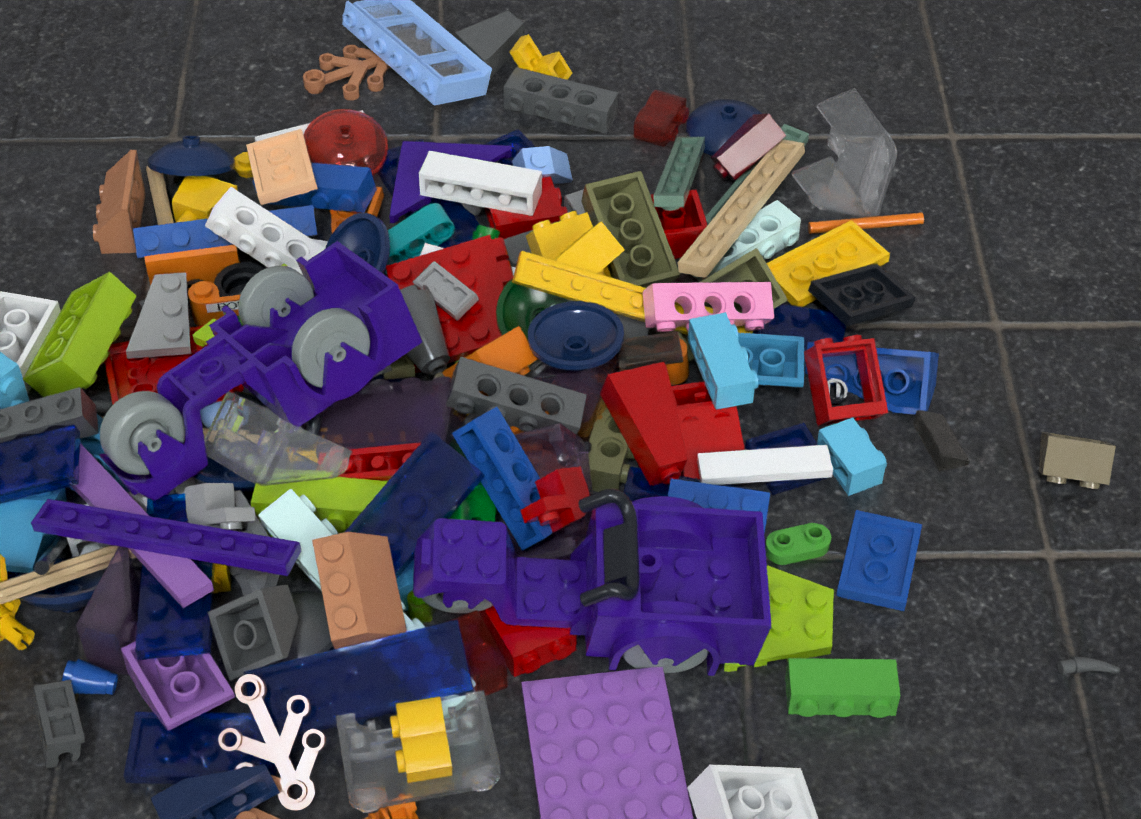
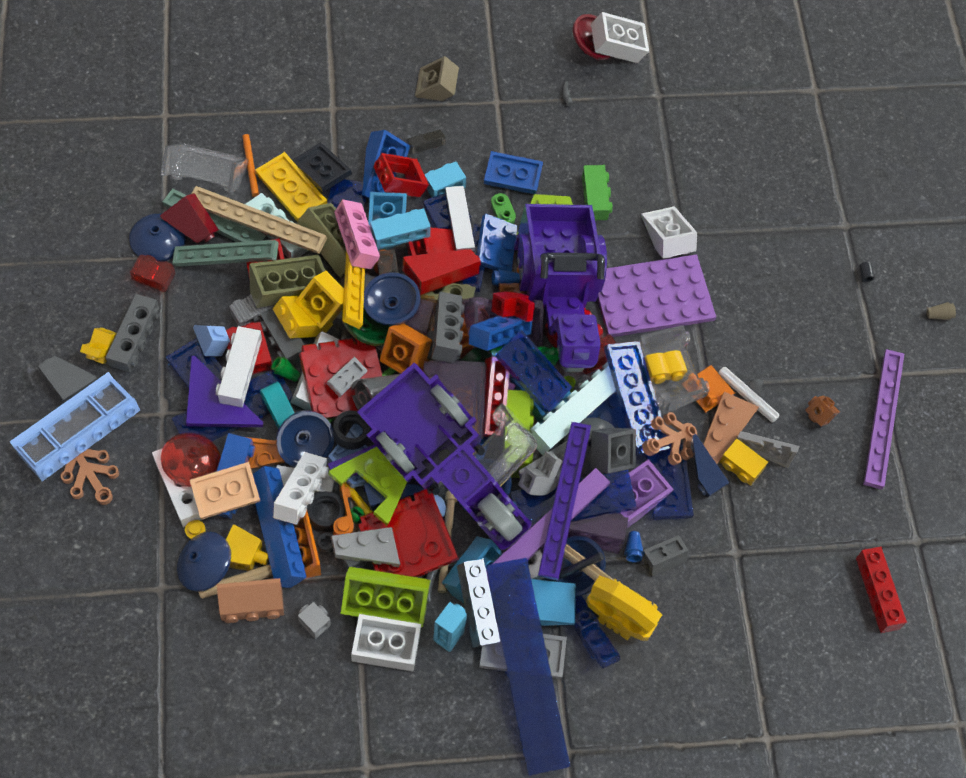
camera: 100 degrees left, 15 degrees up
(75, 270) = (314, 619): none -> light grey brick
(358, 588) = (593, 395): nougat slope -> none

